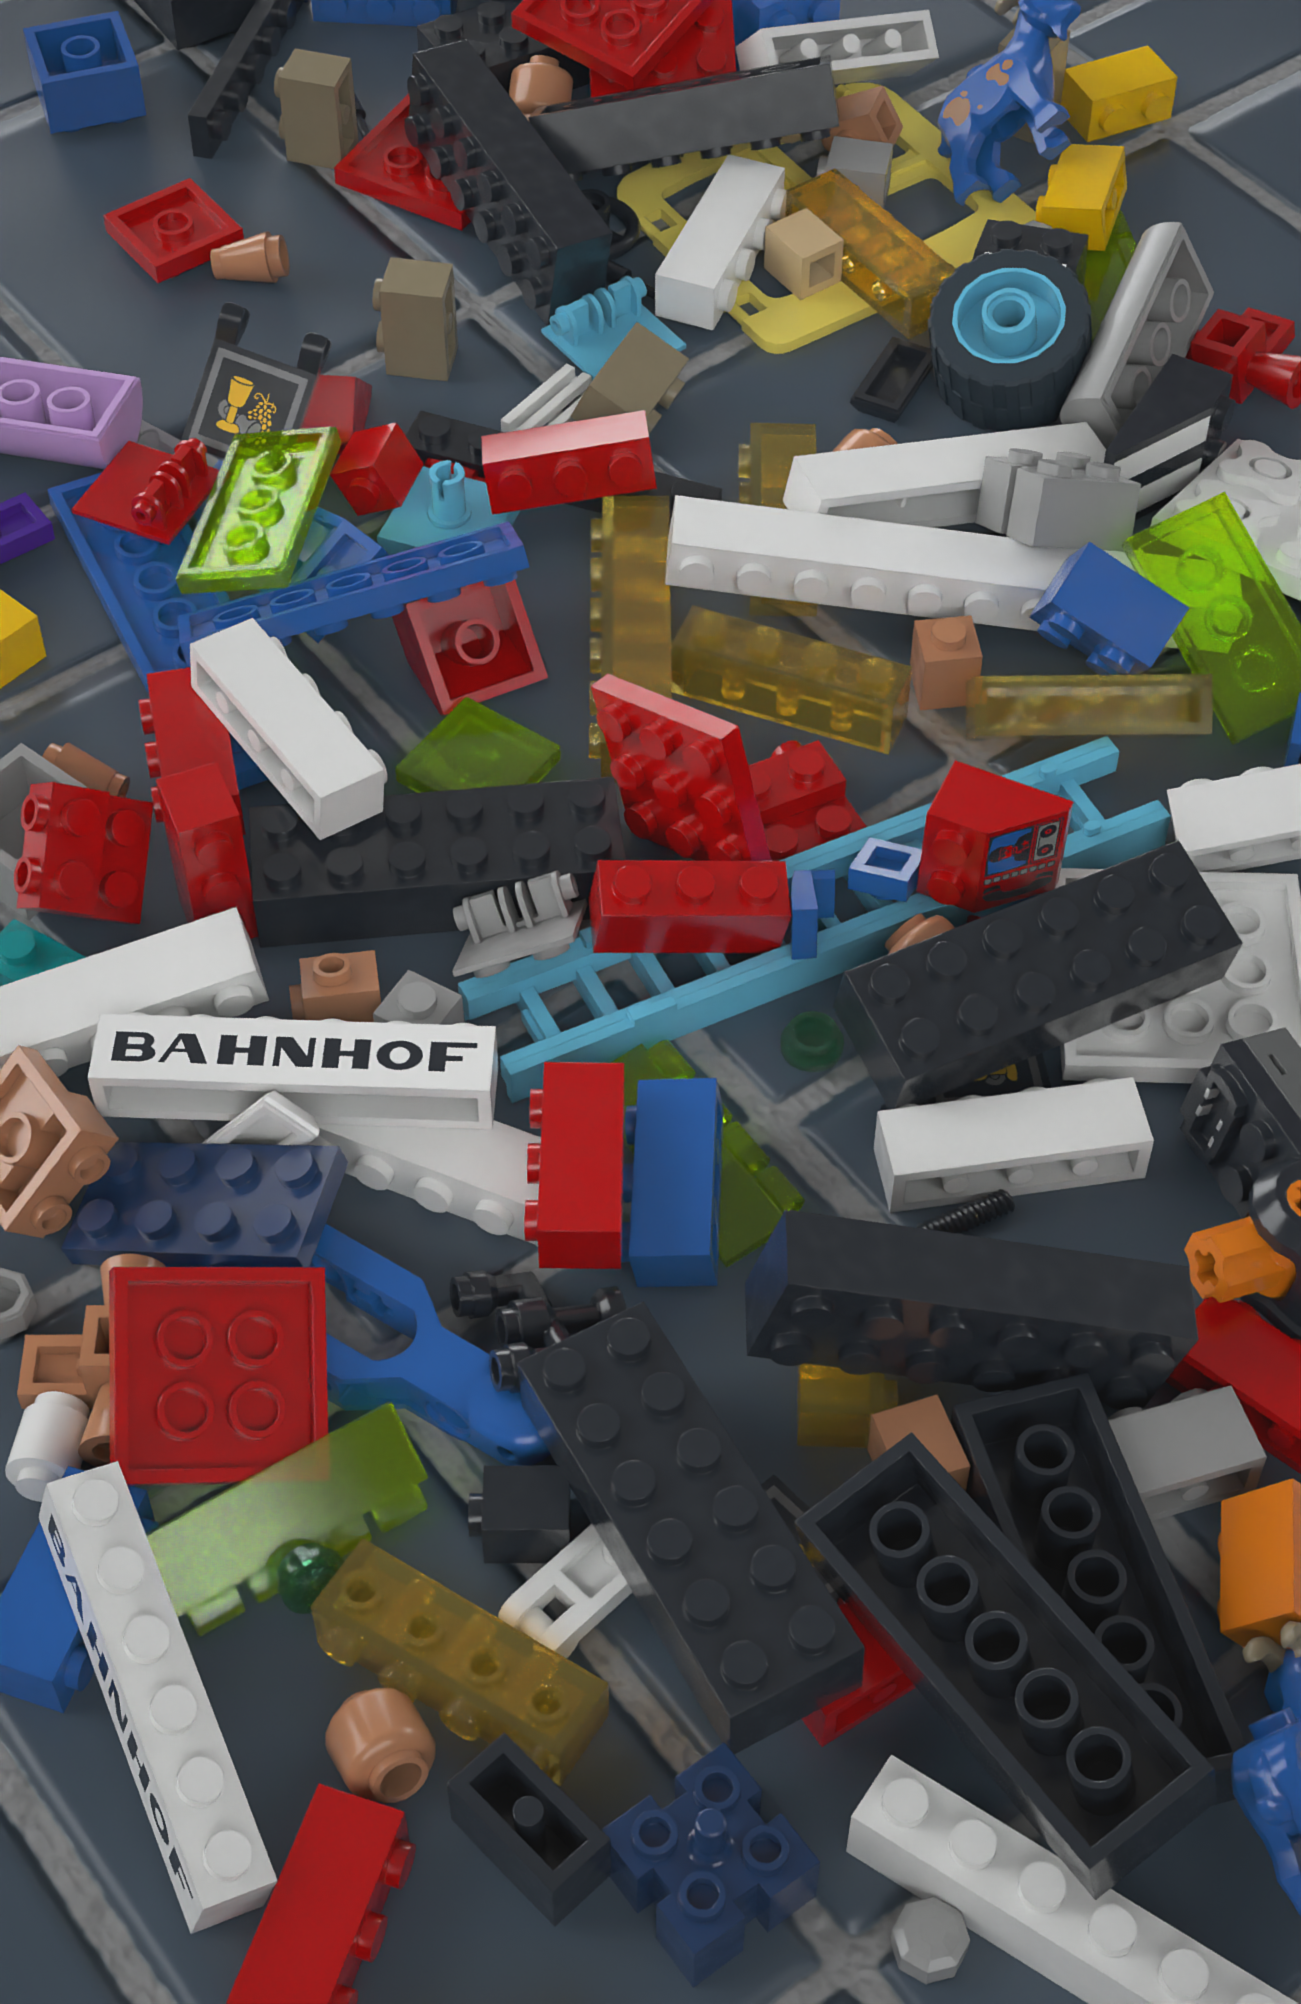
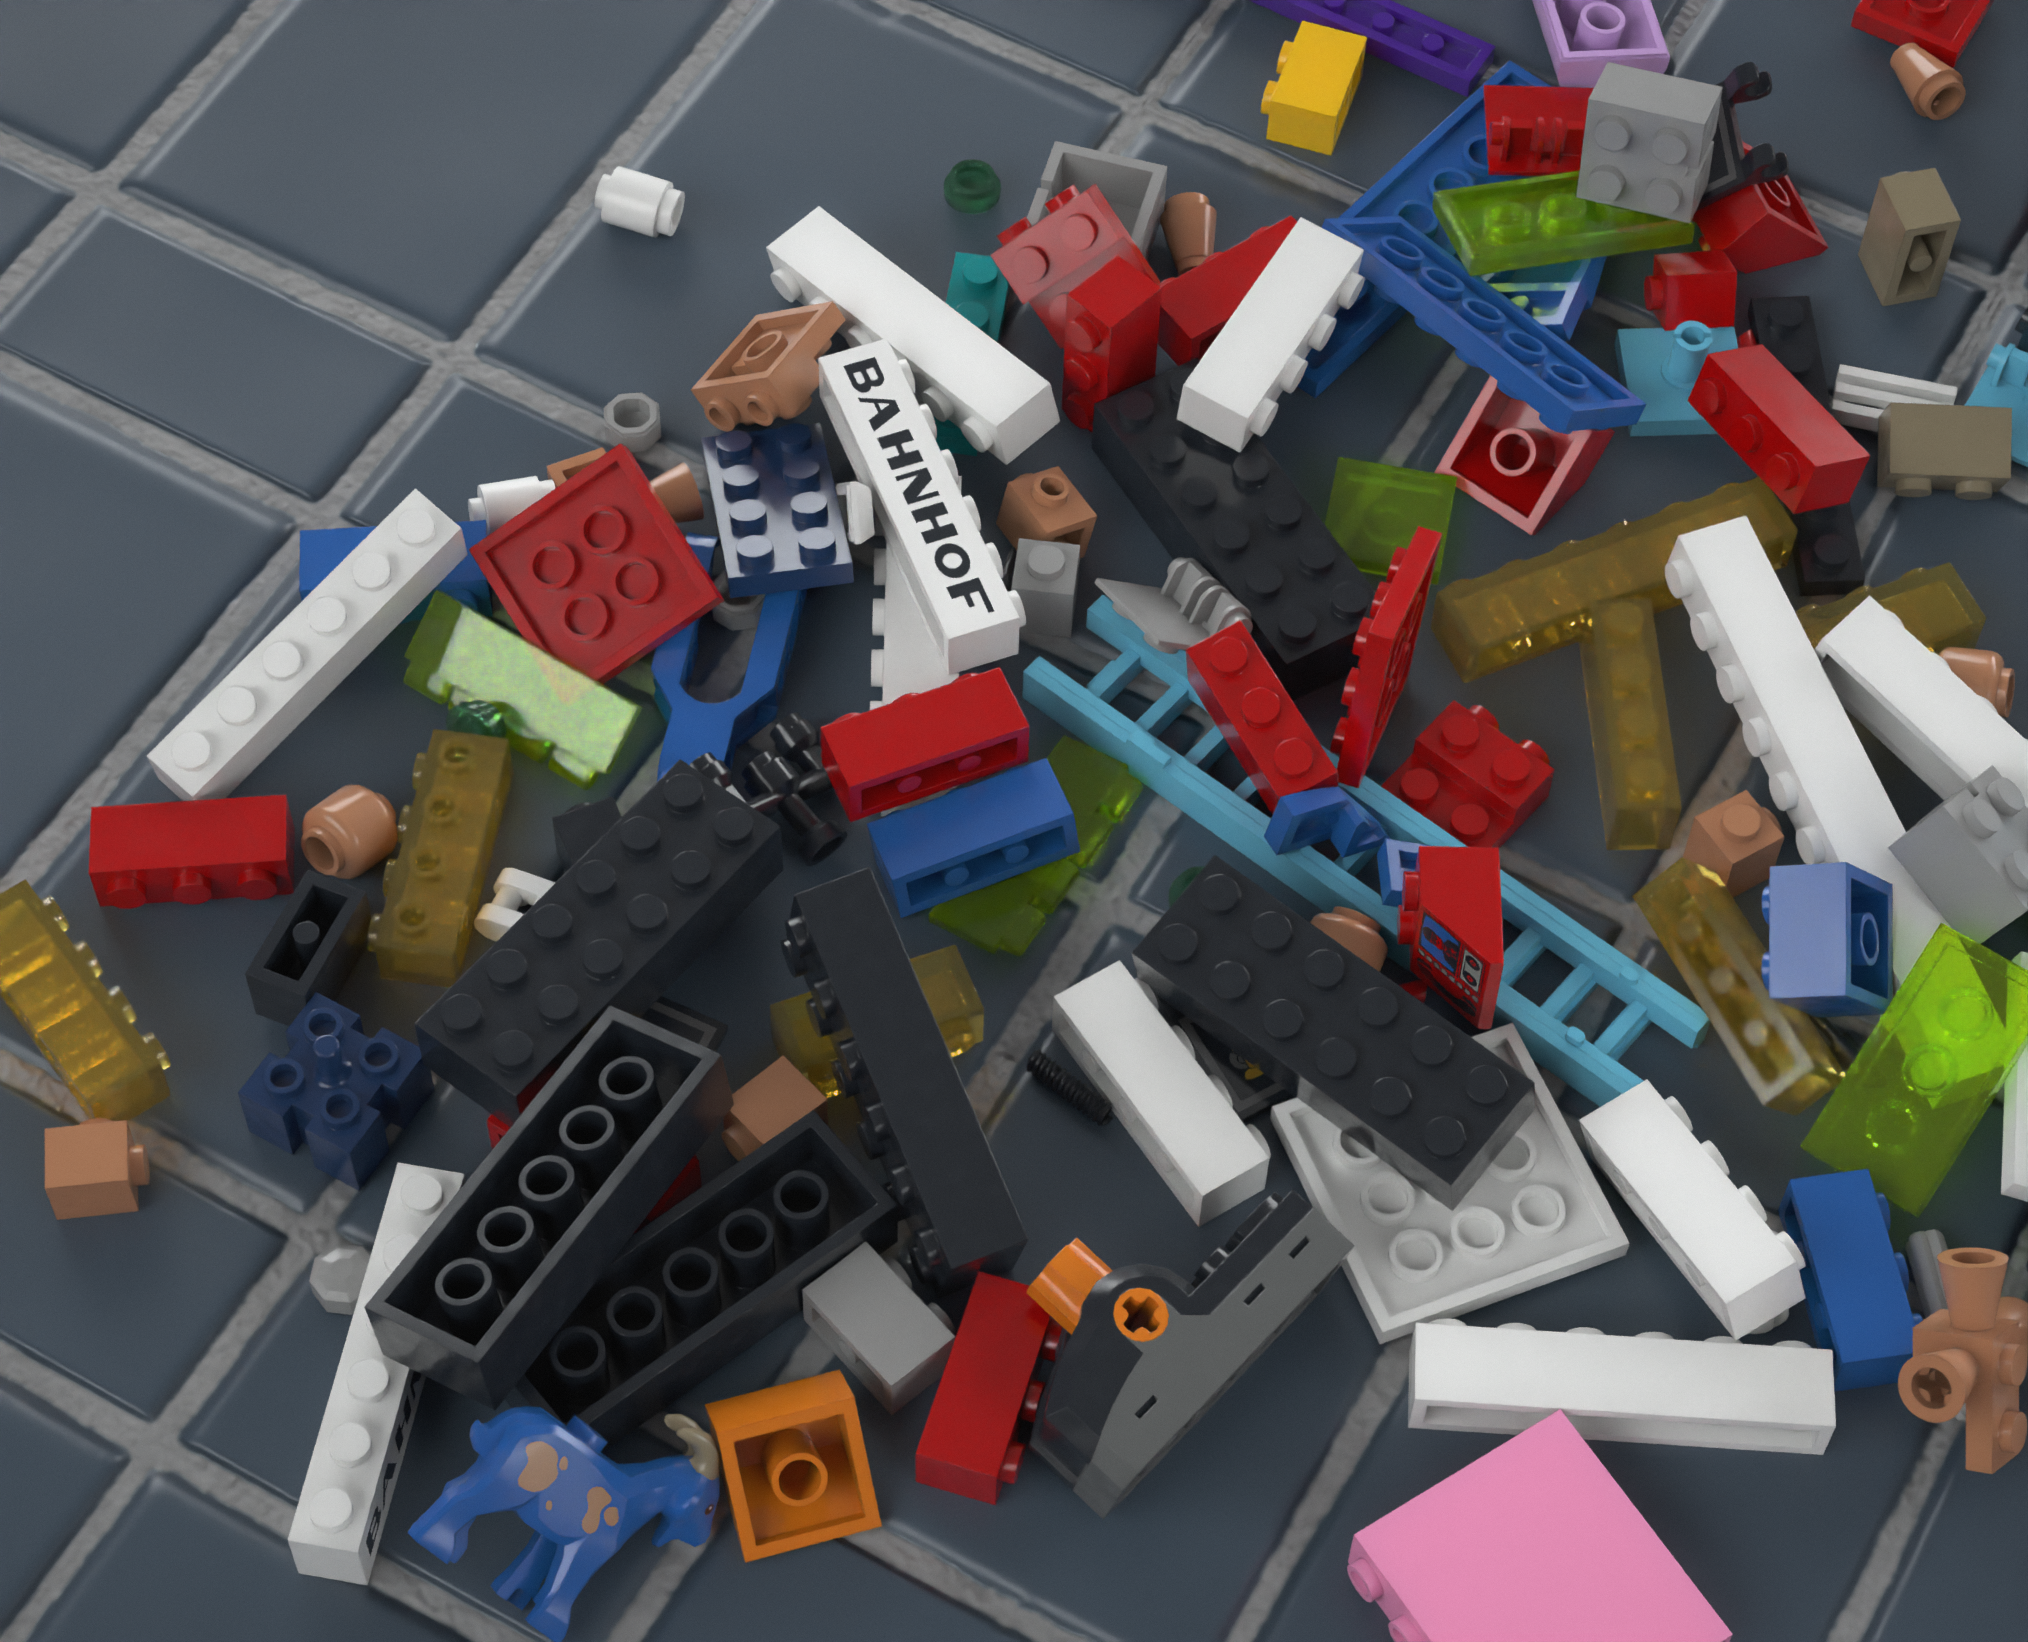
camera: 65 degrees right, 5 degrees up
(253, 402) = (1644, 137): none -> light grey piece

